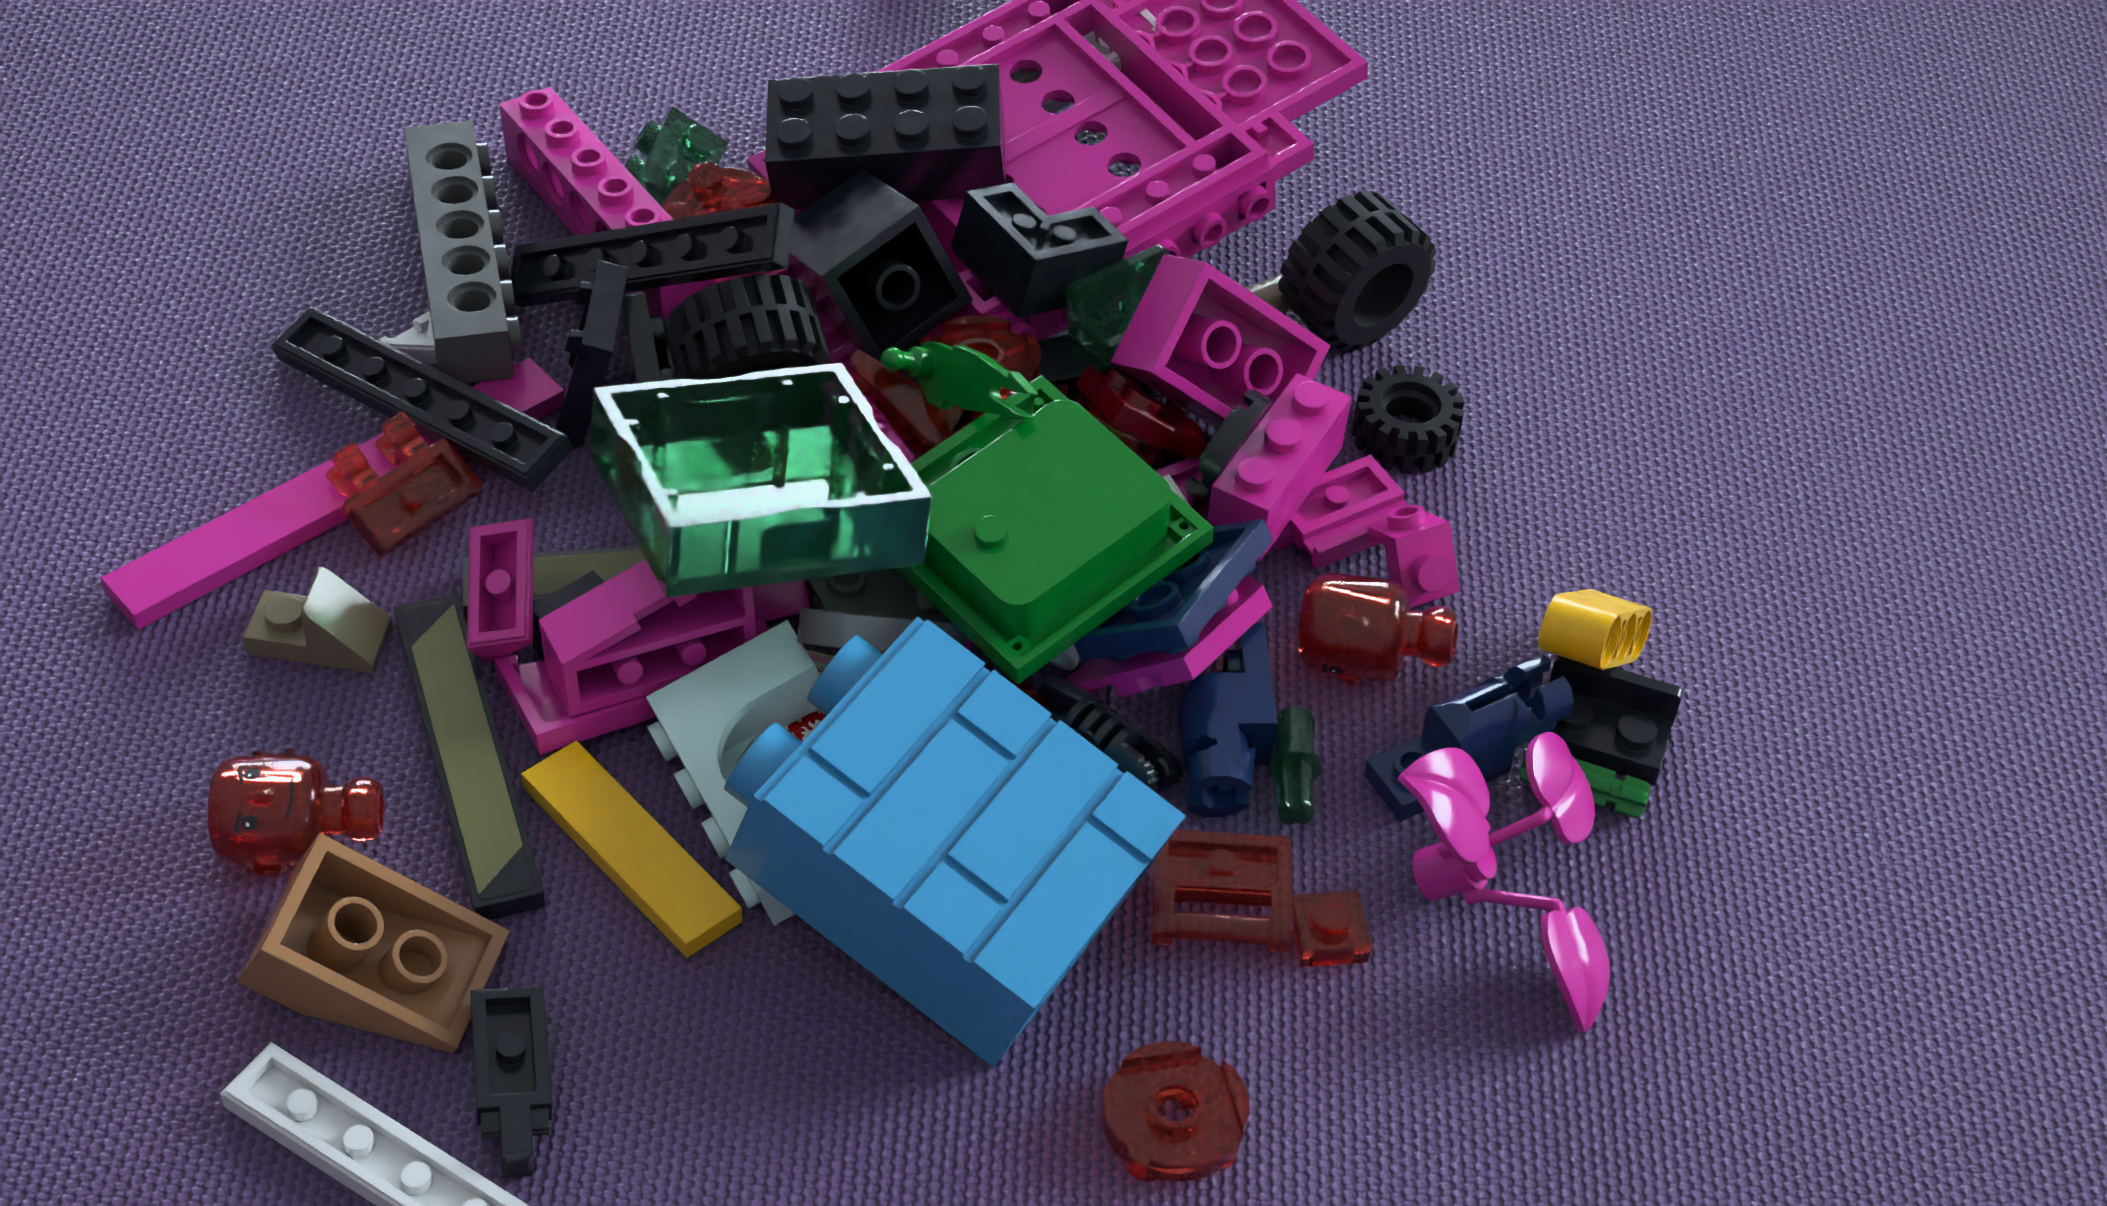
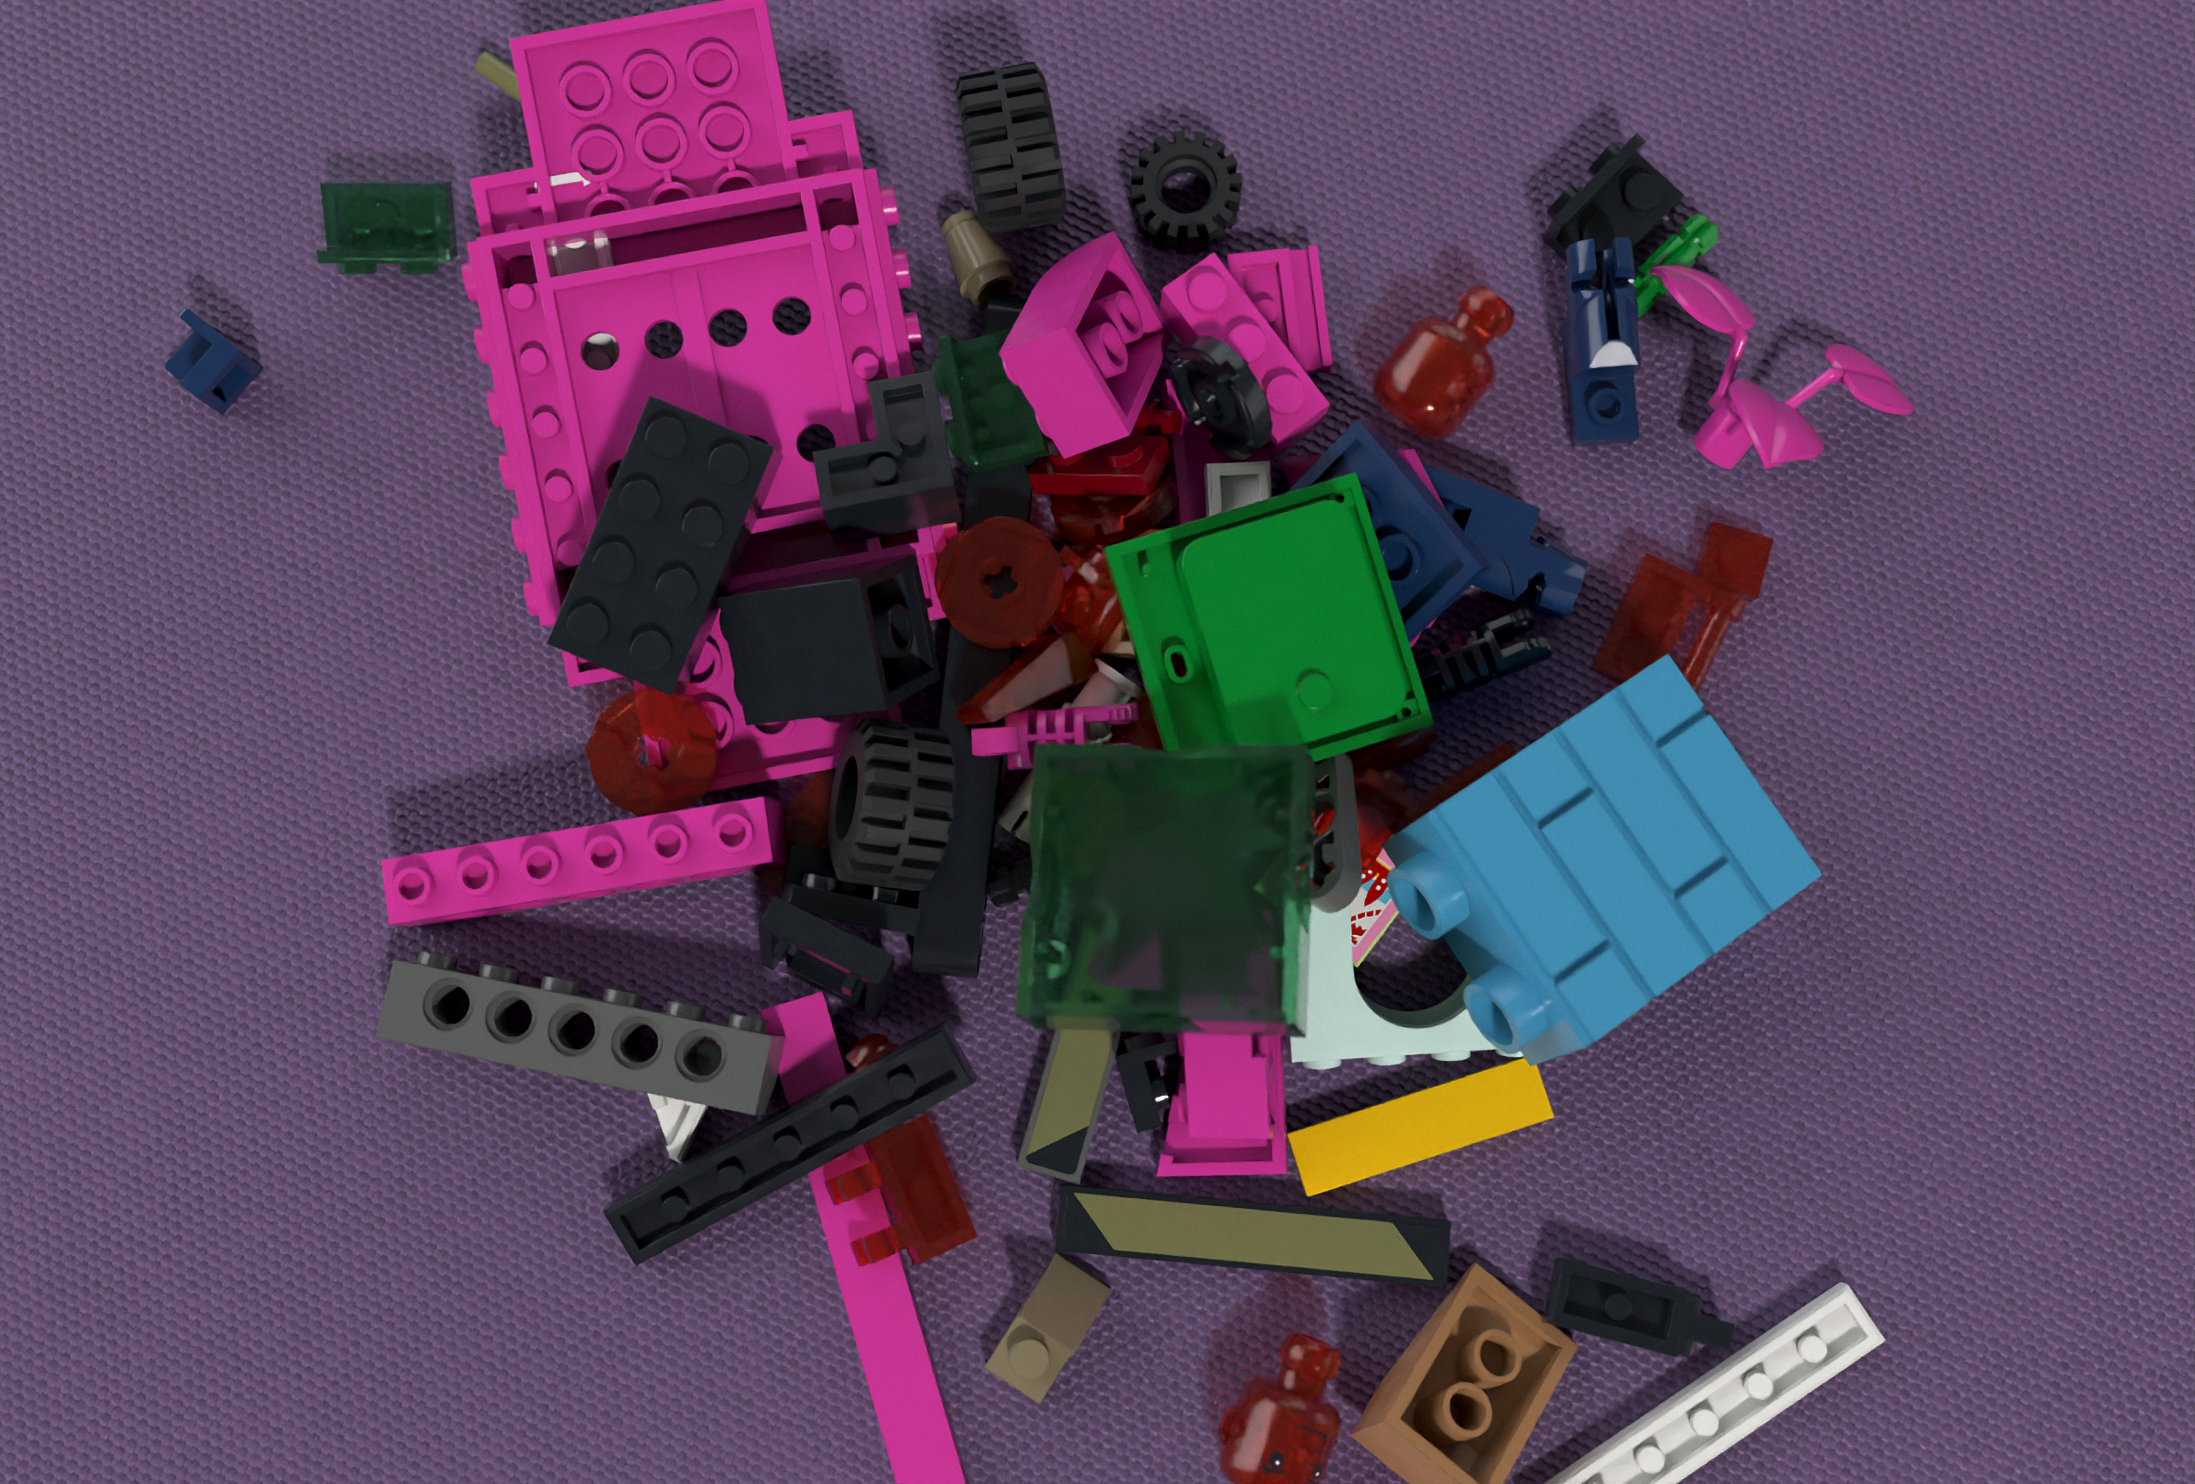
camera: 60 degrees left, 35 degrees up
(500, 588) = (1104, 1151): dark pink slope -> none
(657, 253) = (748, 859): black tile -> none
(671, 151) = (521, 763): clear green bracket -> none
(960, 378) = (1088, 625): green piece -> none
(1167, 1148) = (1901, 757): clear red plate -> none
(1295, 765) = (1564, 509): axle -> none
(1418, 552) = (1366, 274): dark pink bracket -> none
(1594, 628) = (1551, 172): yellow beam -> none

